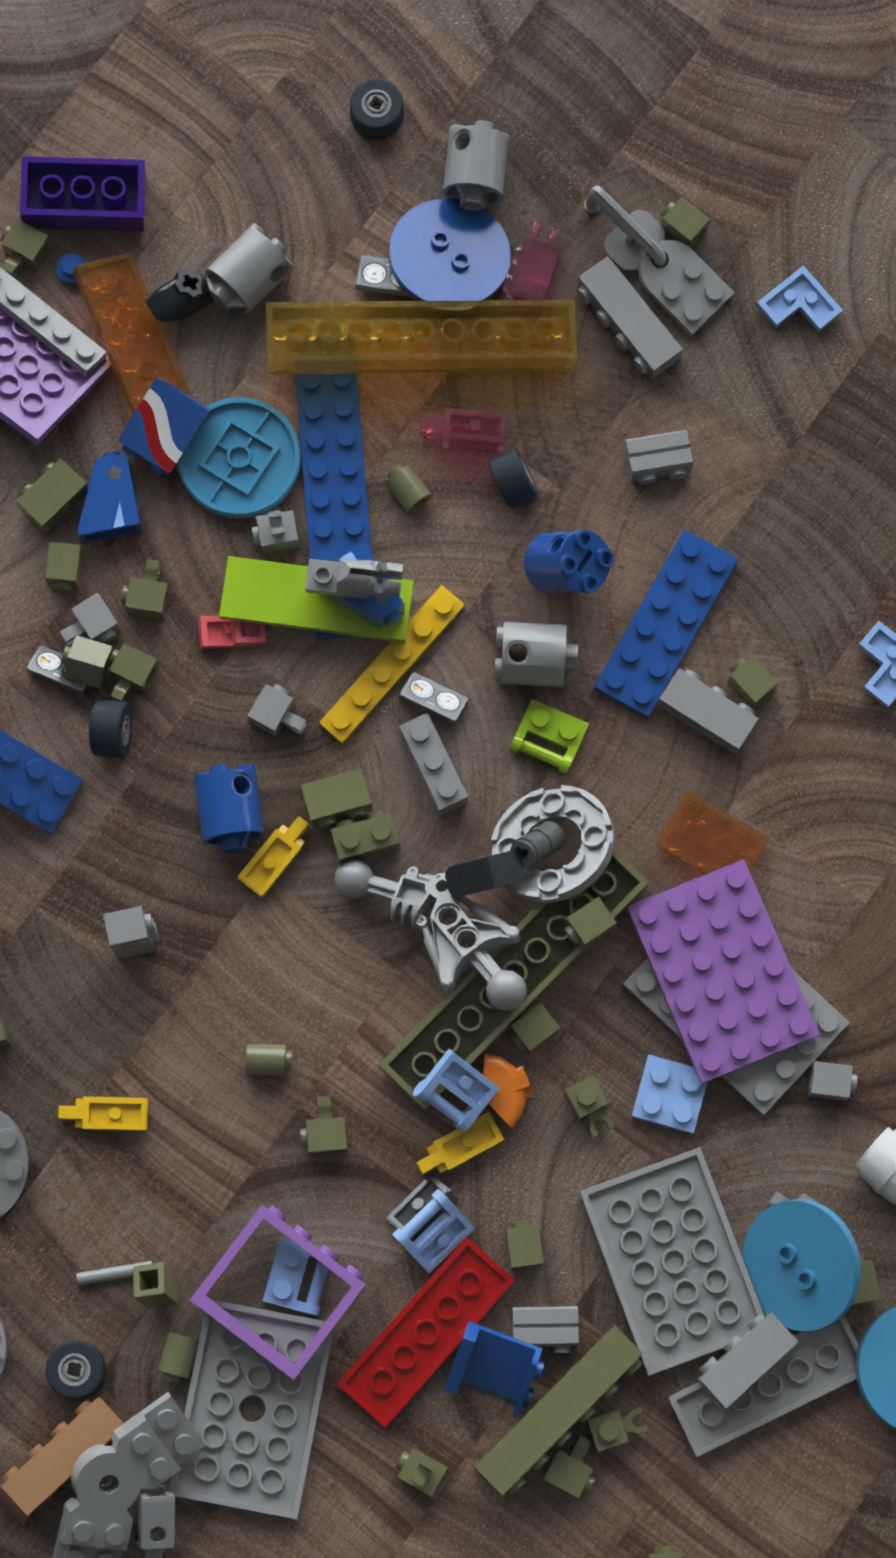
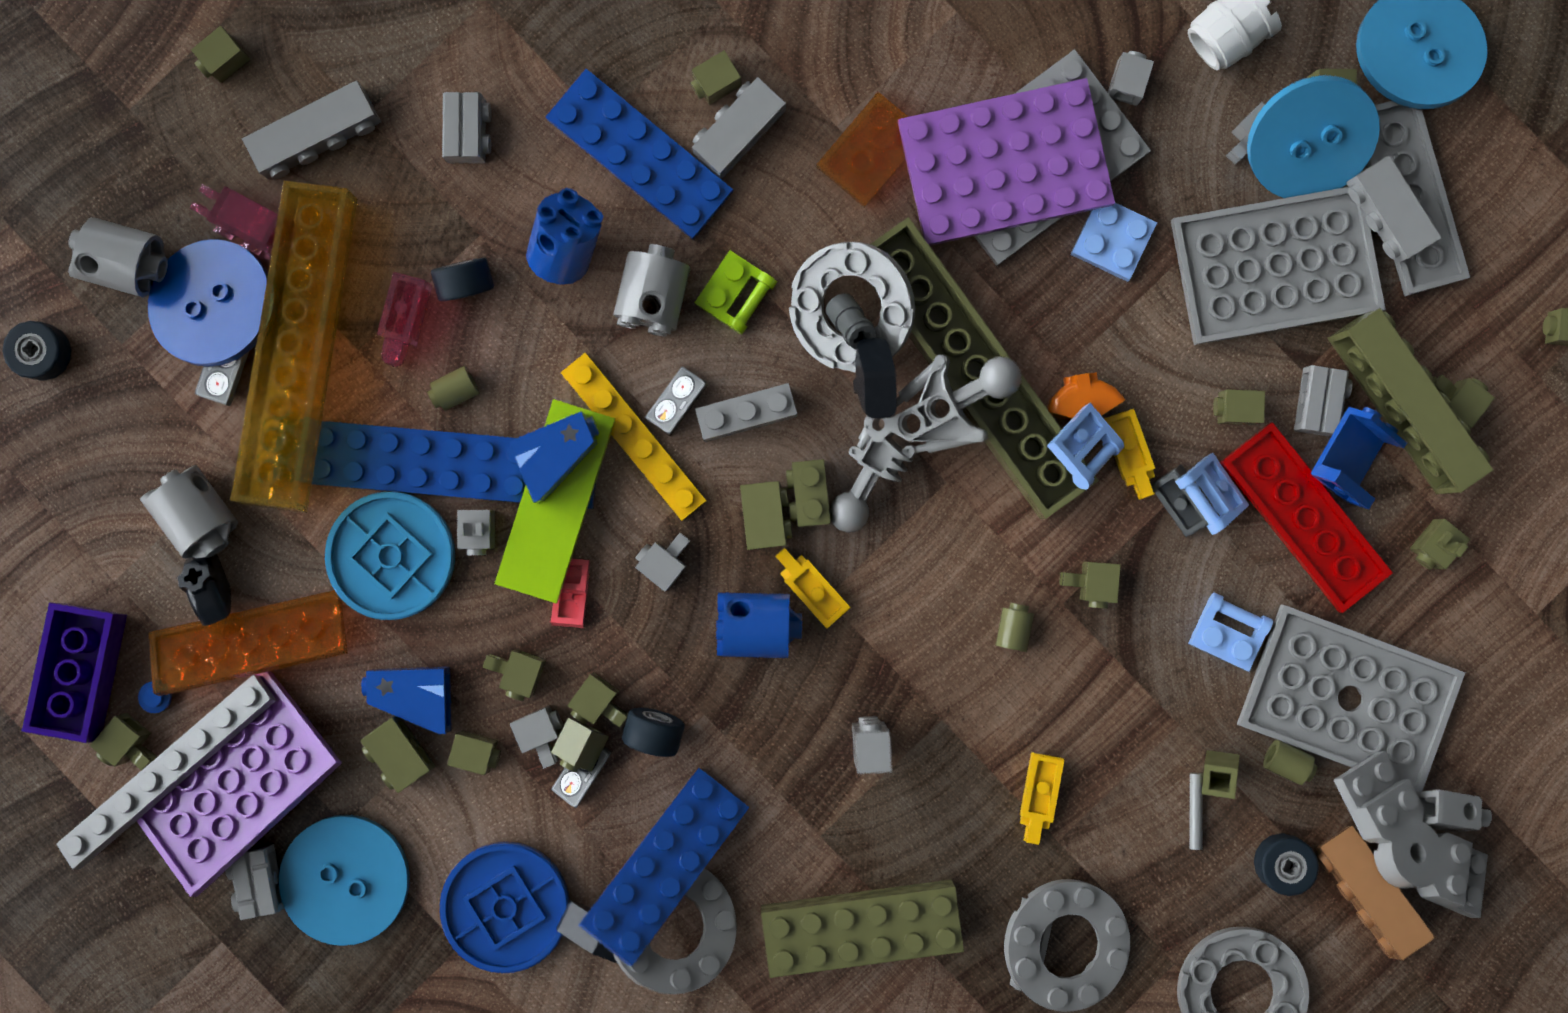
camera: 80 degrees left, 10 degrees up
(163, 426) = (343, 628): panel -> none
(323, 1255) = (1287, 692): medium lavender window -> none
(354, 578) = (546, 458): light grey plate -> none
(533, 1029) = (1031, 359): olive brick -> none
(587, 1102) = (1112, 319): olive brick -> none
(589, 923) = (944, 282): olive brick -> none
(611, 1429) = (1432, 353): olive brick -> none
(684, 287) = (287, 65): light grey plate -> none

